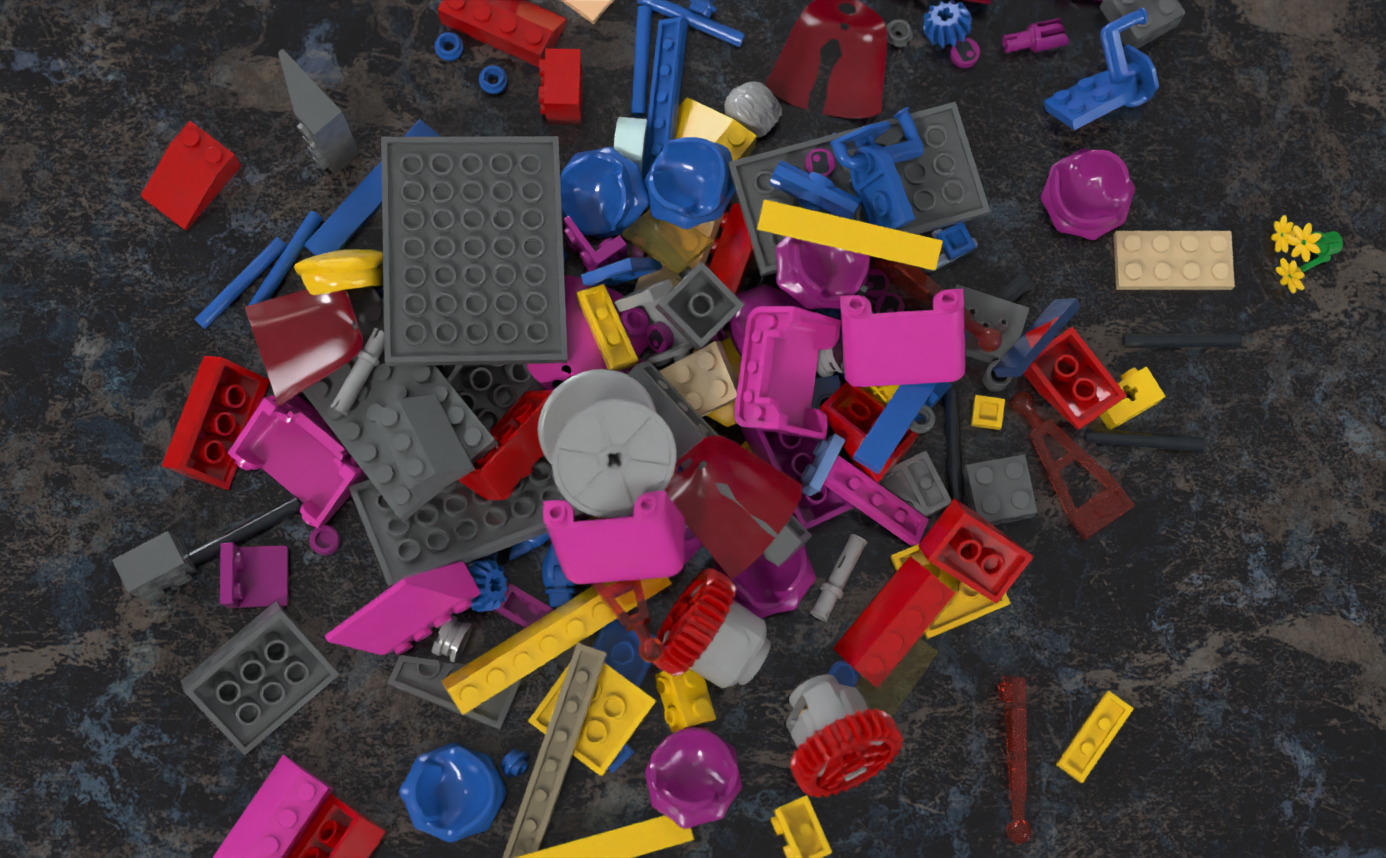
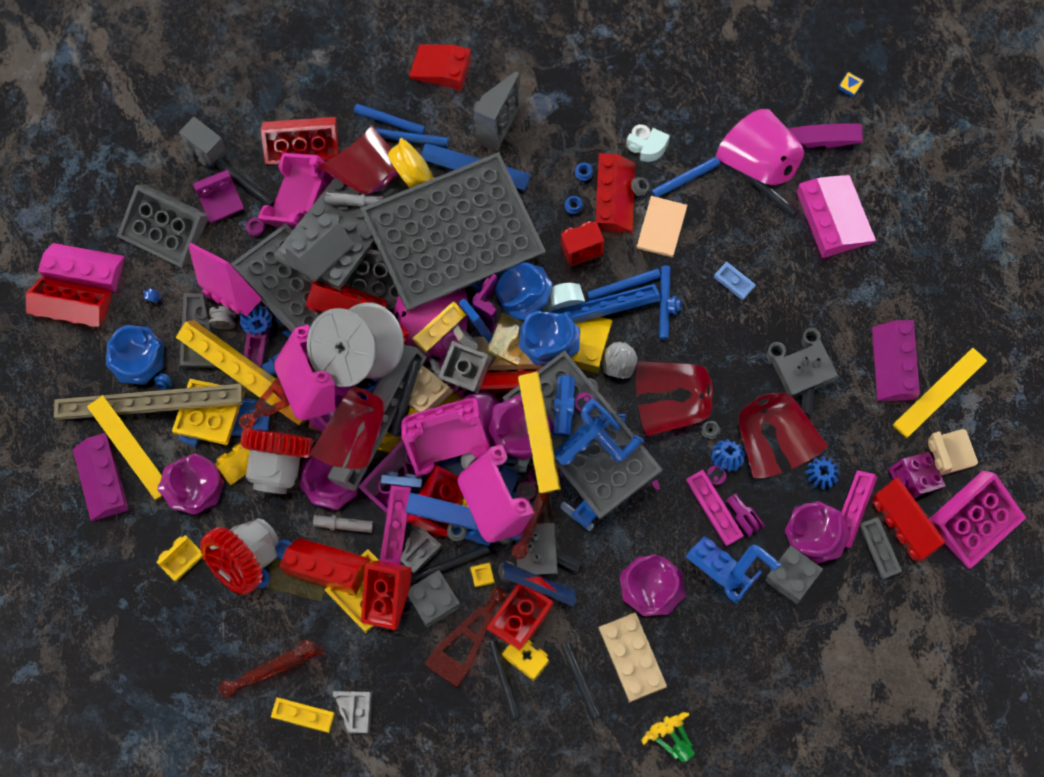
camera: 75 degrees right, 5 degrees down
(368, 733) = (151, 295): none -> blue plate
(699, 408) = (405, 398): none -> black piece
(1010, 72) = (714, 508): none -> dark pink plate
(1116, 659) = (356, 710): none -> flat silver wing

